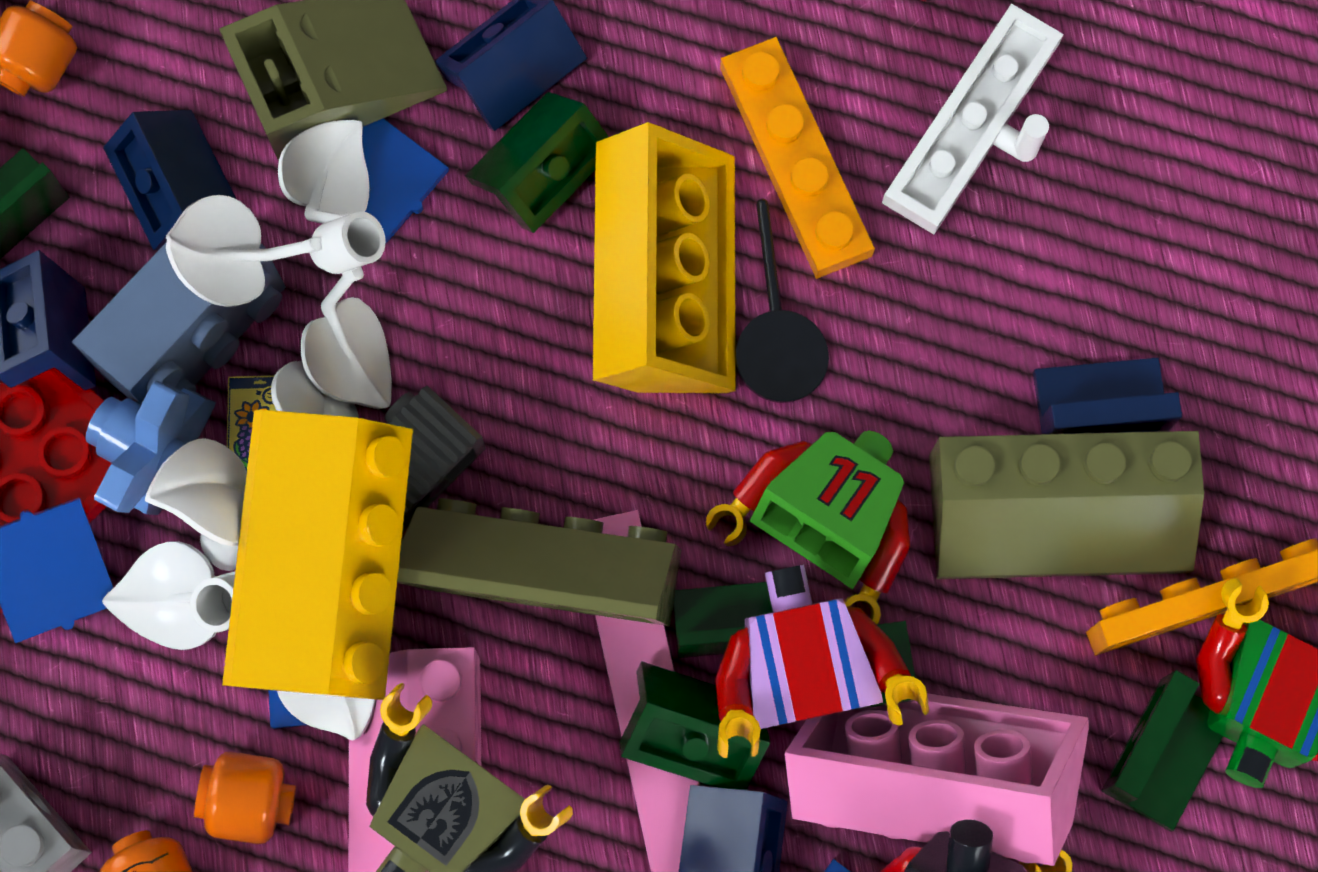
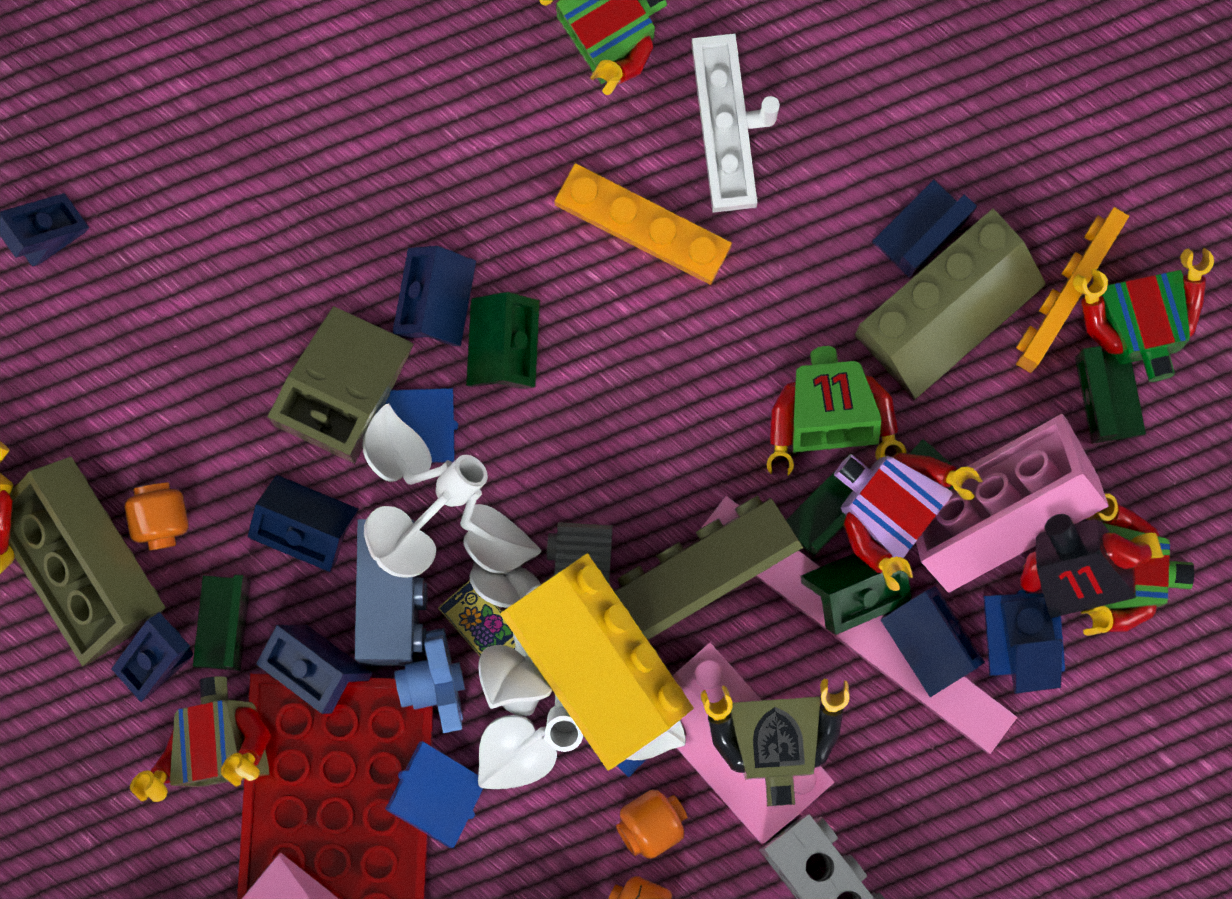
camera: 40 degrees left, 5 degrees up
(664, 264) = (624, 346): yellow slope -> none
(779, 351) = (727, 342): black piece -> none

